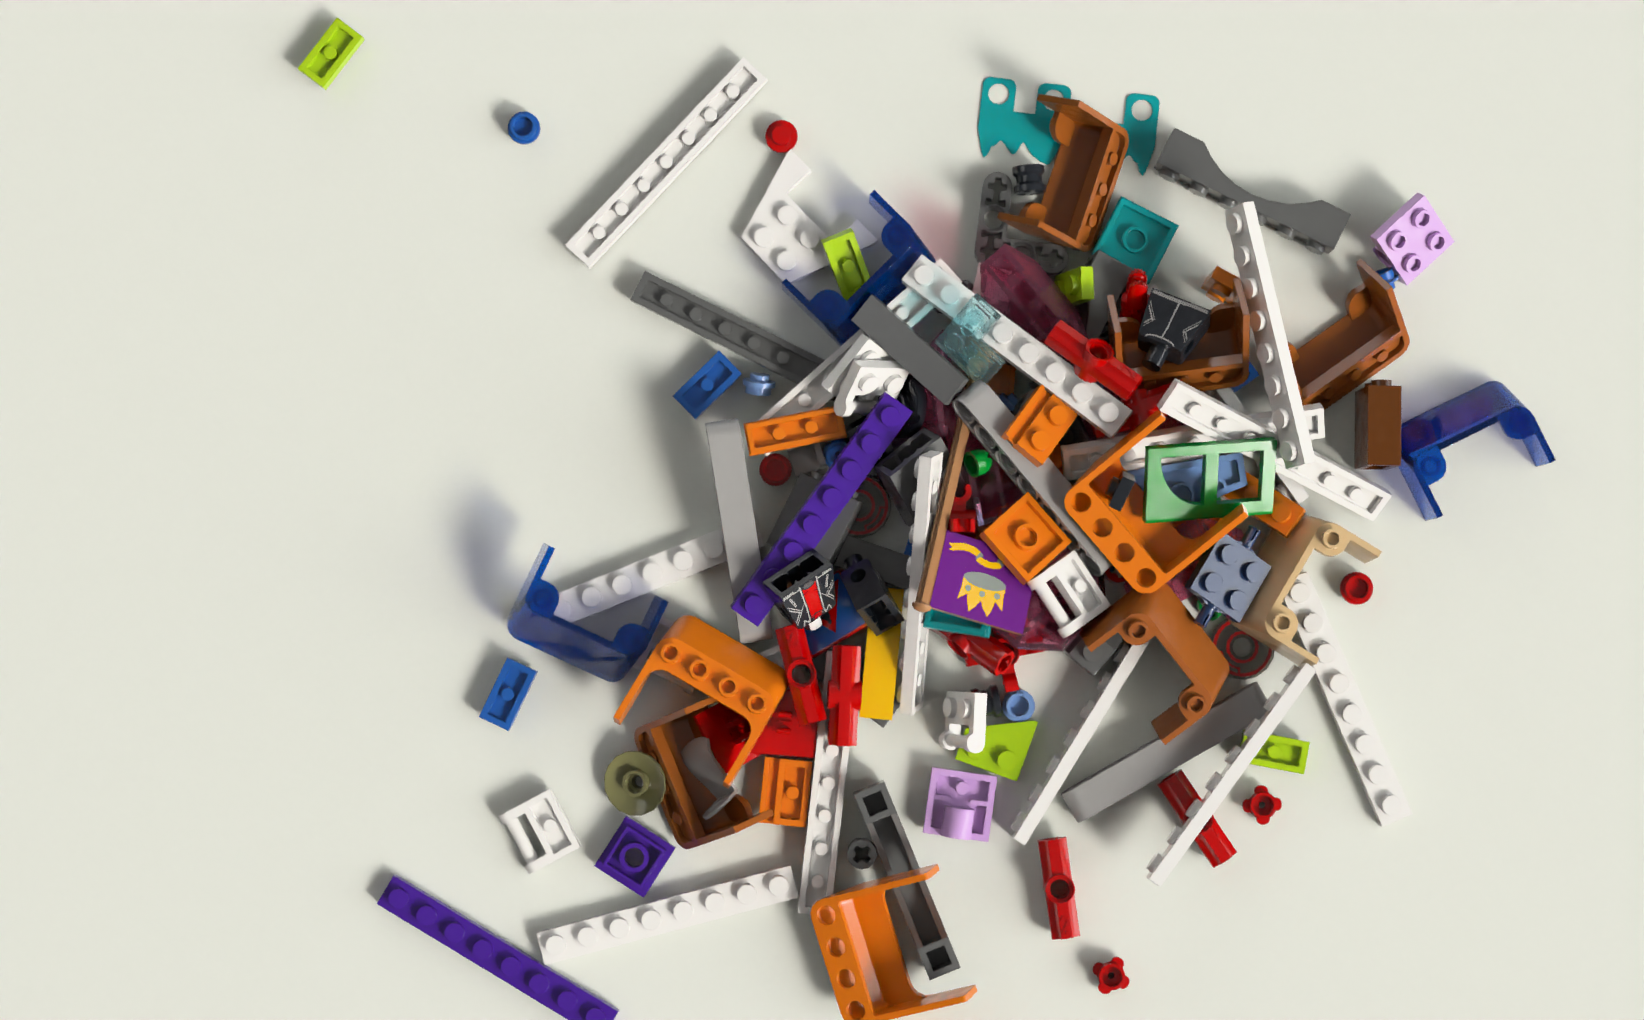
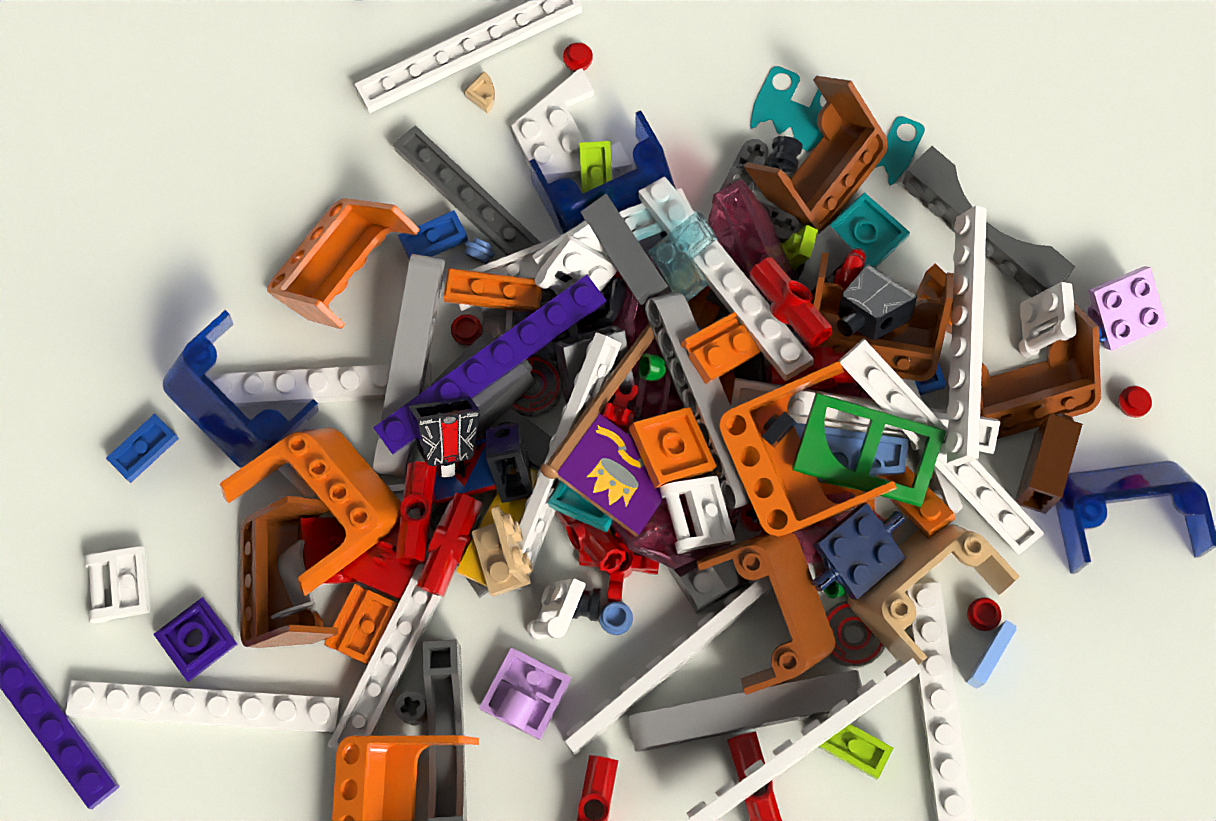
camera: 15 degrees right, 15 degrees down
(614, 440) = (332, 254): none -> orange windscreen
(622, 787) = (212, 564): olive dish -> none
(696, 207) = (482, 92): none -> tan tile
(898, 691) = (501, 554): none -> tan bracket
(1003, 748) = (583, 653): lime wing -> none
(1272, 804) = (829, 787): red plate -> none
(1333, 270) = (1043, 311): none -> white plate
(1374, 625) = (992, 654): none -> light blue tile
(1442, 330) = (1135, 401): none -> red plate

